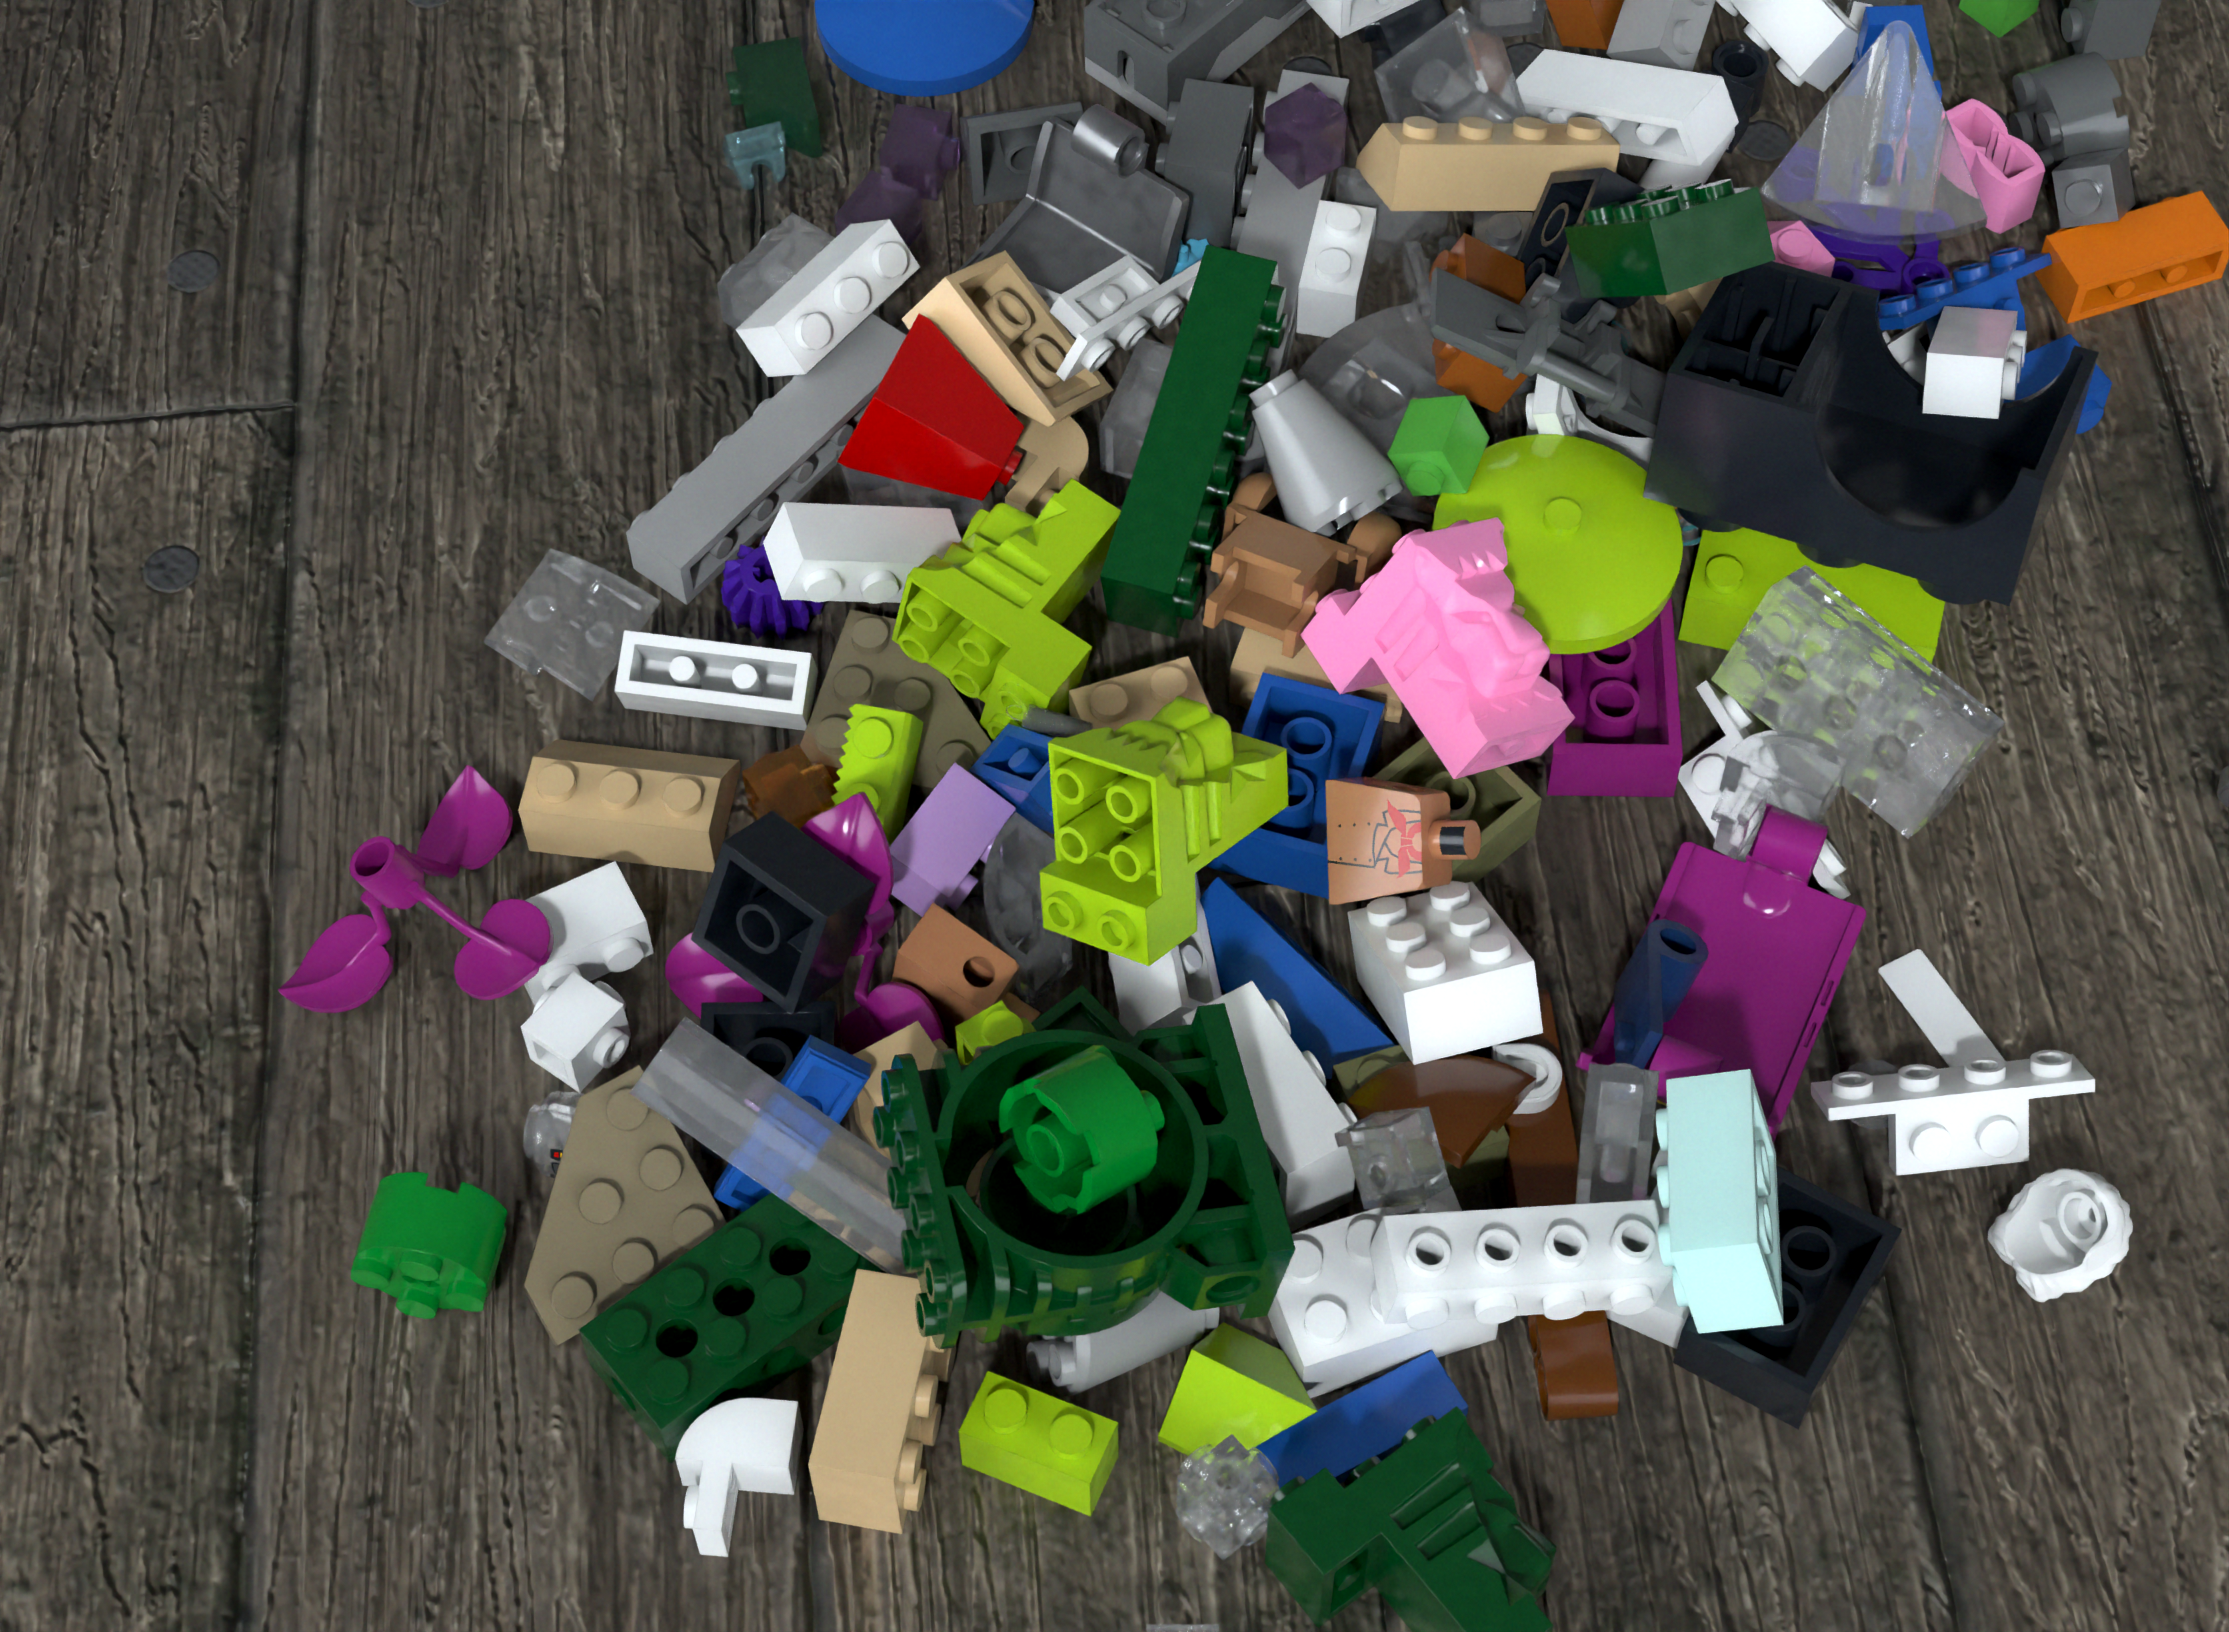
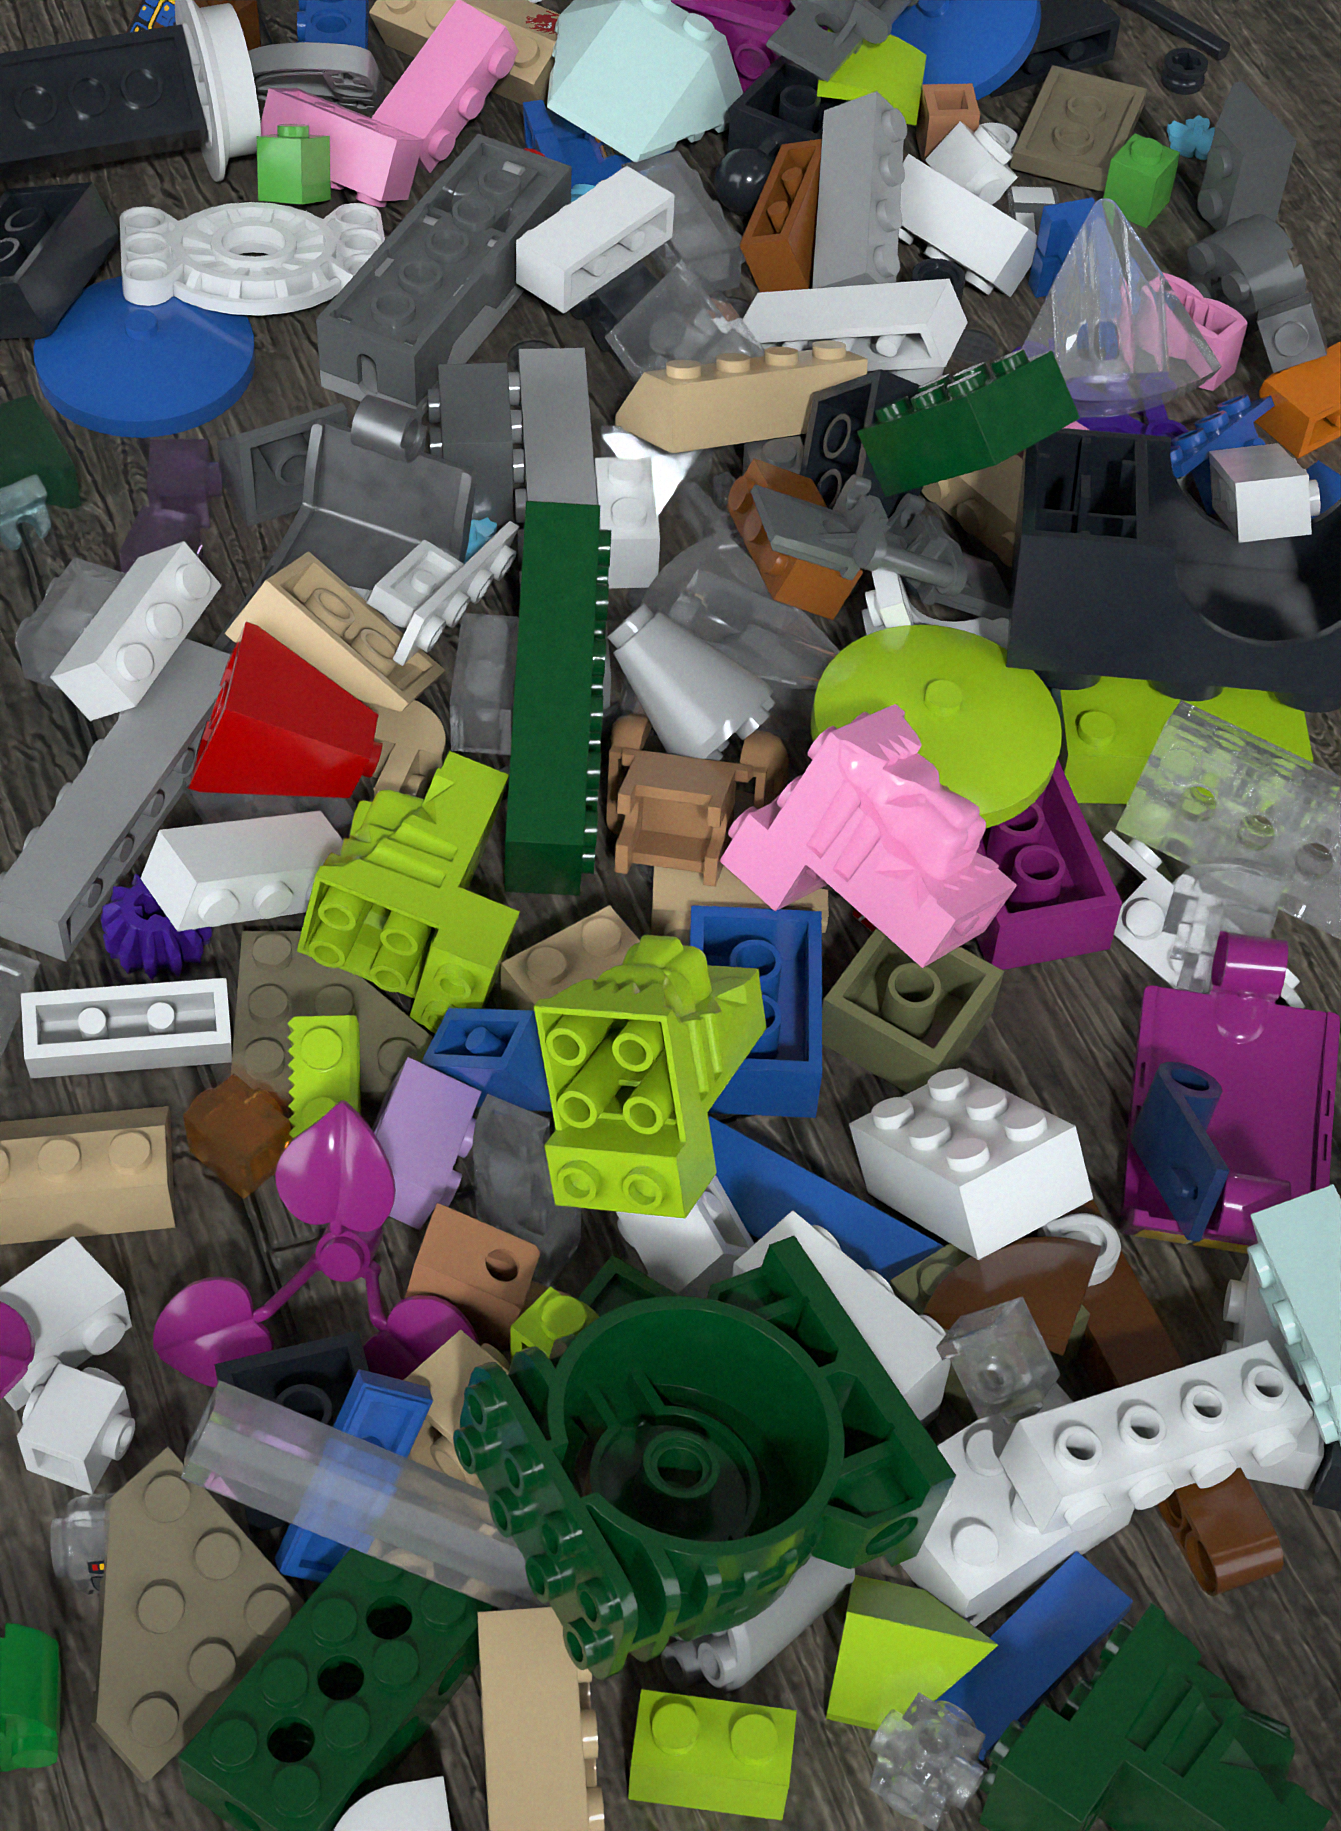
camera: 20 degrees left, 5 degrees down
(782, 912) = (284, 1246): black brick -> none
(1052, 723) = (502, 996): clear piece -> none
(1081, 1130) = (697, 1403): green brick -> none
(1305, 135) = (566, 399): clear purple brick -> none
(1391, 838) = (879, 1040): nougat torso -> none
(1438, 445) = (801, 653): bright green brick -> none
(1616, 1133) = (1207, 1284): clear brick -> none

